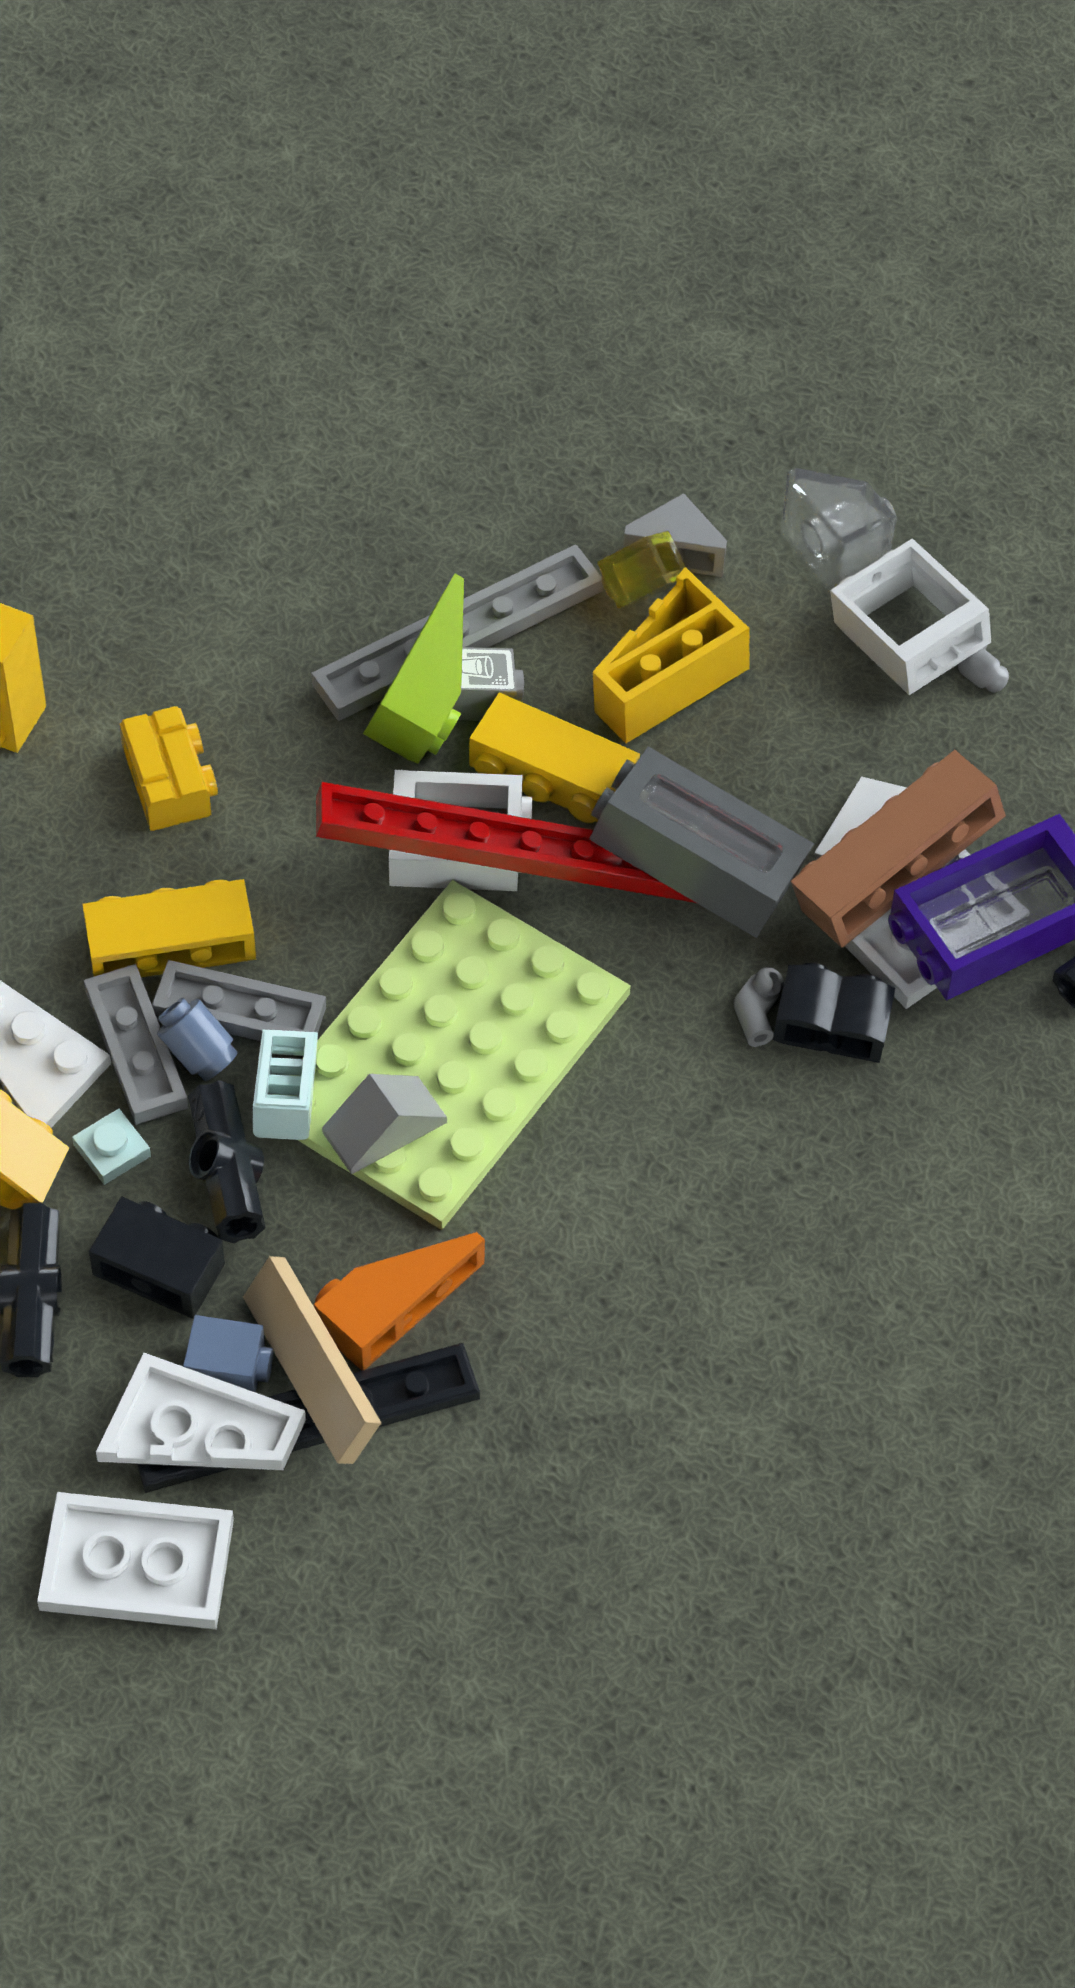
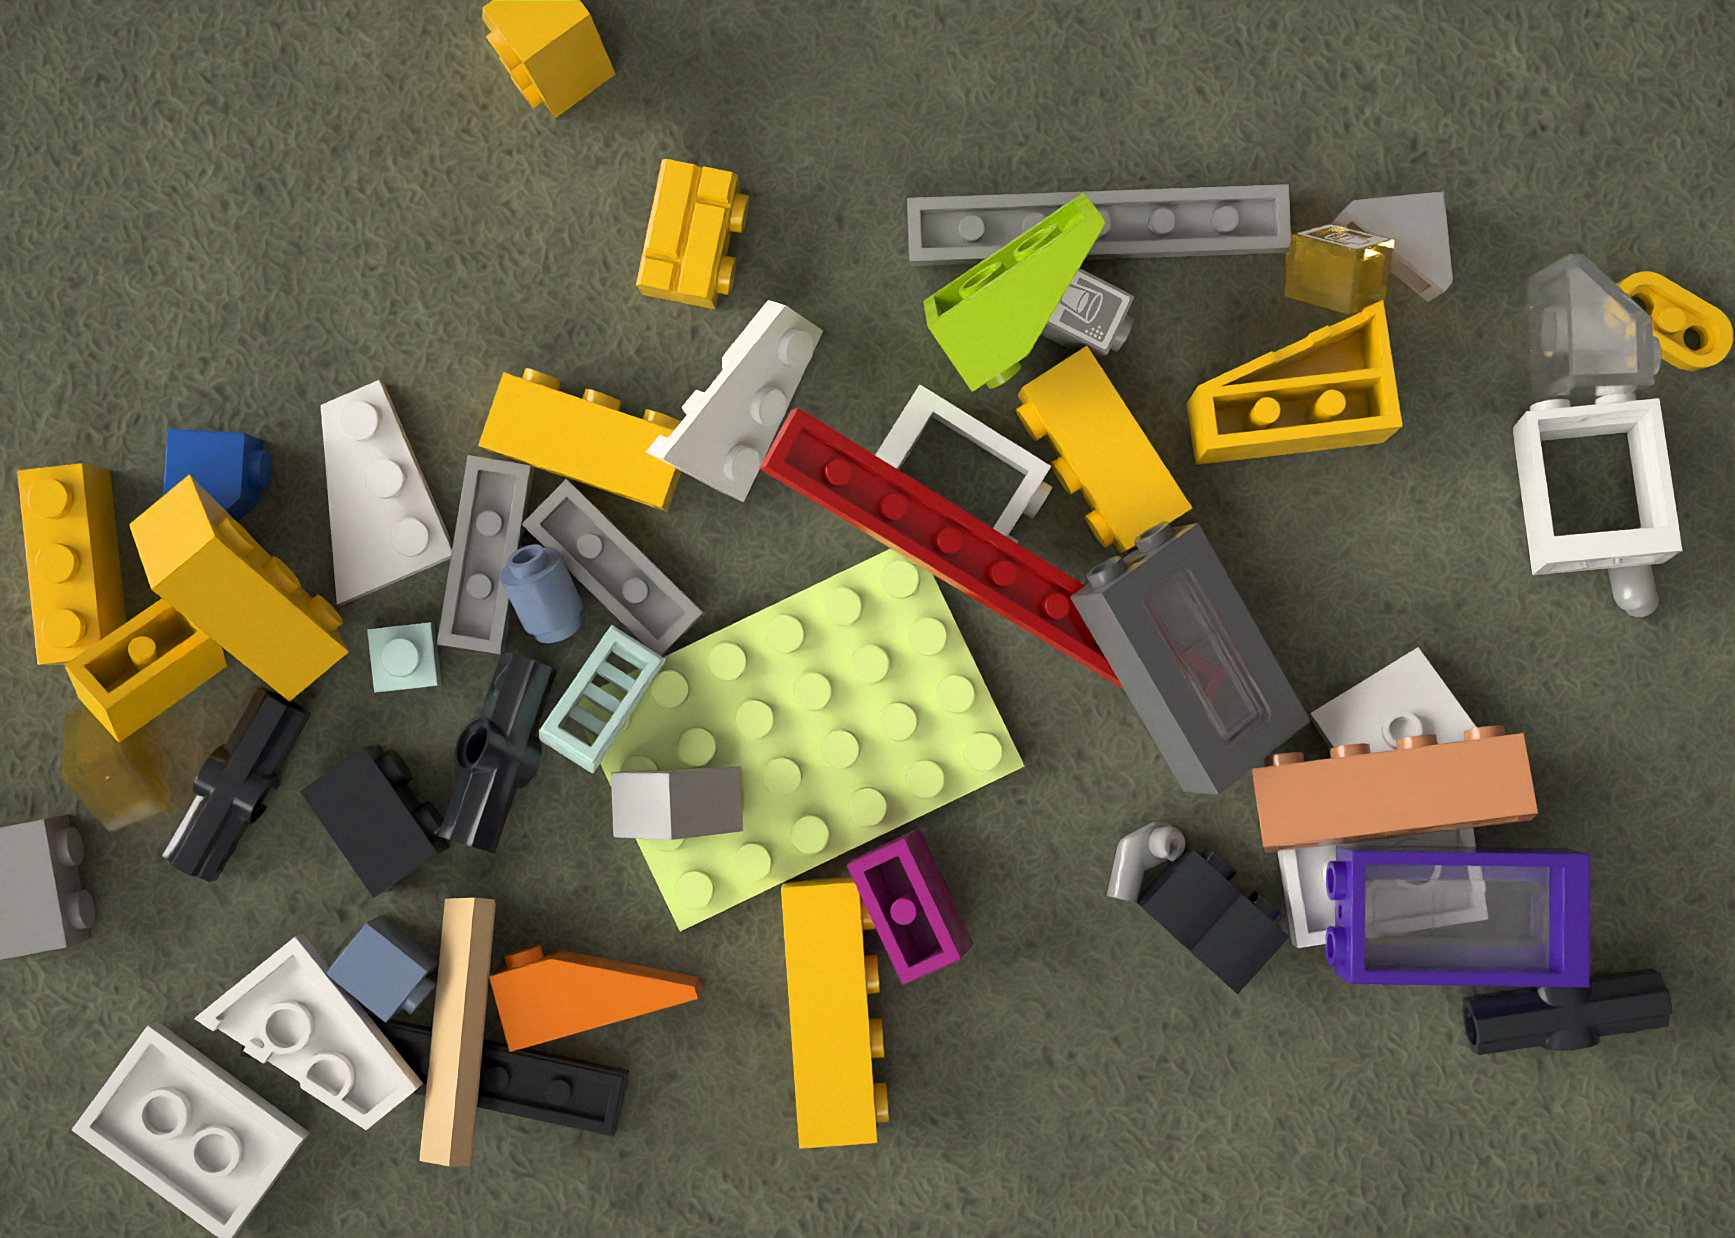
camera: 30 degrees right, 30 degrees up
(272, 850) = (740, 412): none -> white wing
(593, 1212) = (831, 1013): none -> yellow brick
(605, 1102) = (910, 906): none -> magenta brick
(912, 496) = (1673, 312): none -> yellow plate

